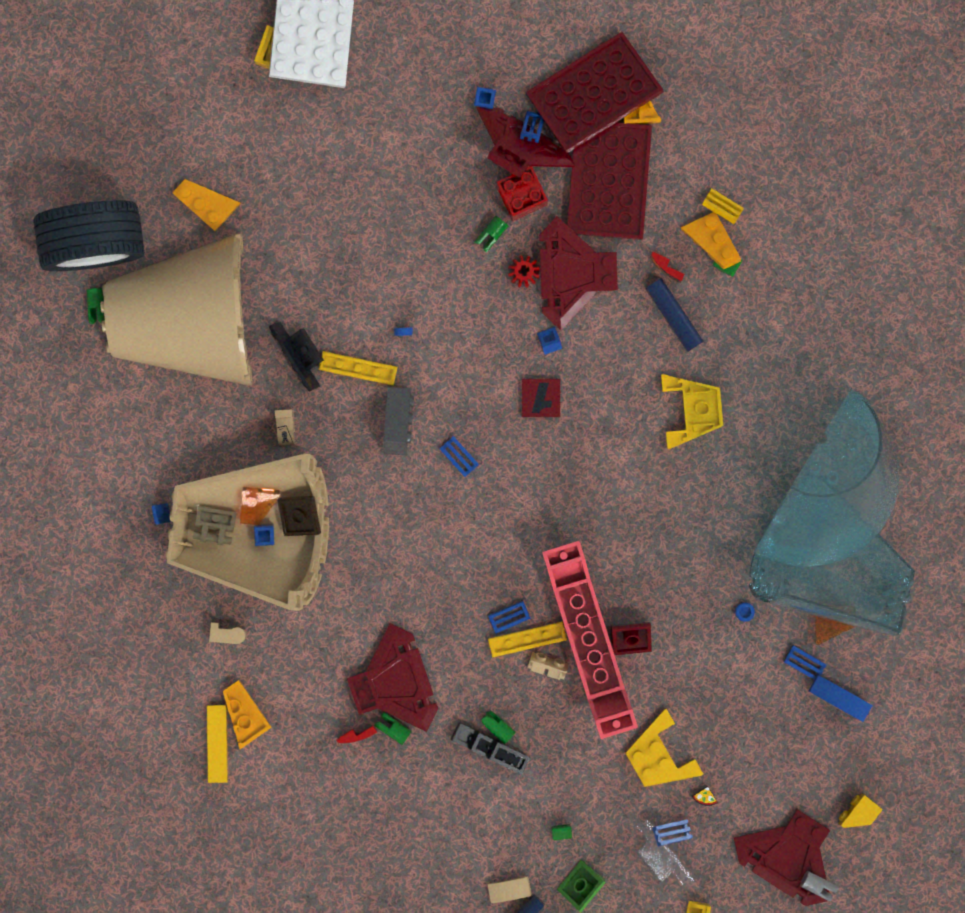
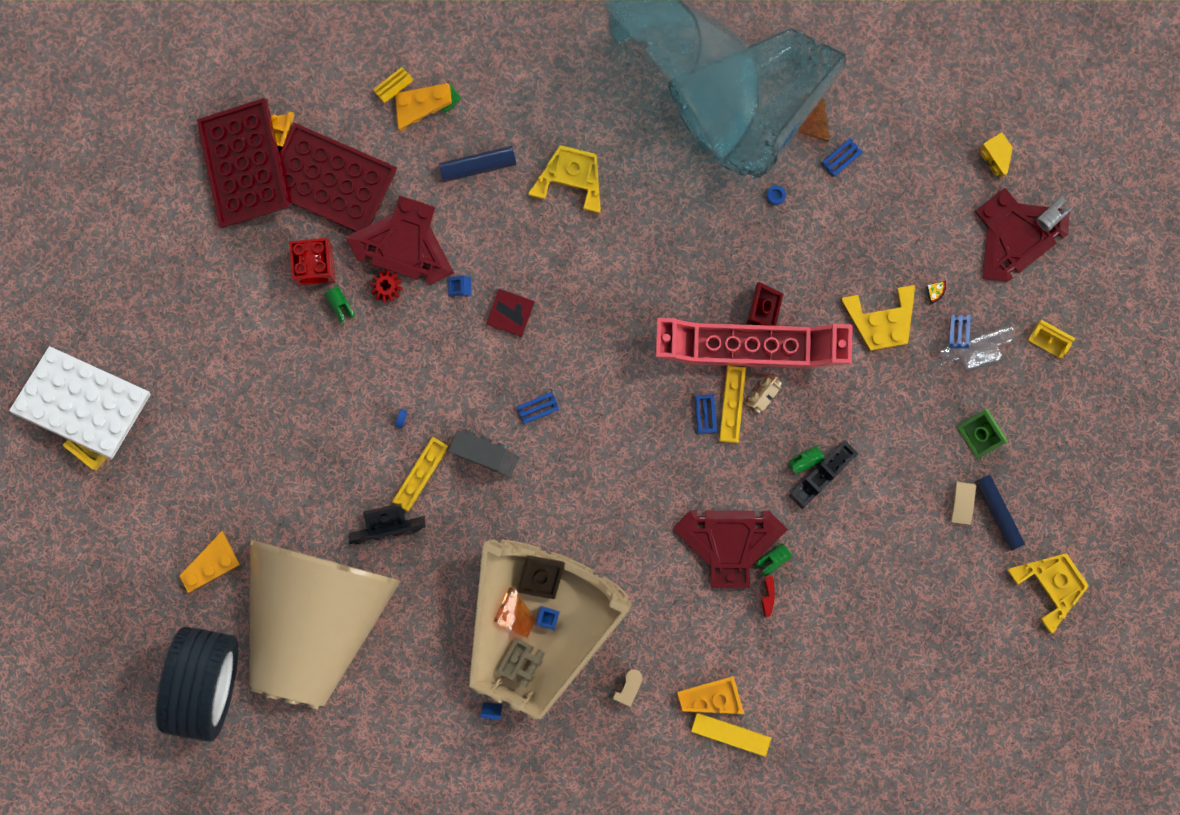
camera: 70 degrees left, 5 degrees down
(94, 299) = (264, 704): green hinge -> none
(285, 427) = (451, 562): tan leg -> none
(485, 97) = (210, 266): blue slope -> none
(515, 153) = (266, 248): dark red plate -> none
(530, 134) = (259, 234): blue tile -> none
(561, 832) = (924, 435): green slope -> none
(662, 263) = (425, 157): red slope -> none
(840, 698) = (886, 135): blue slope -> none

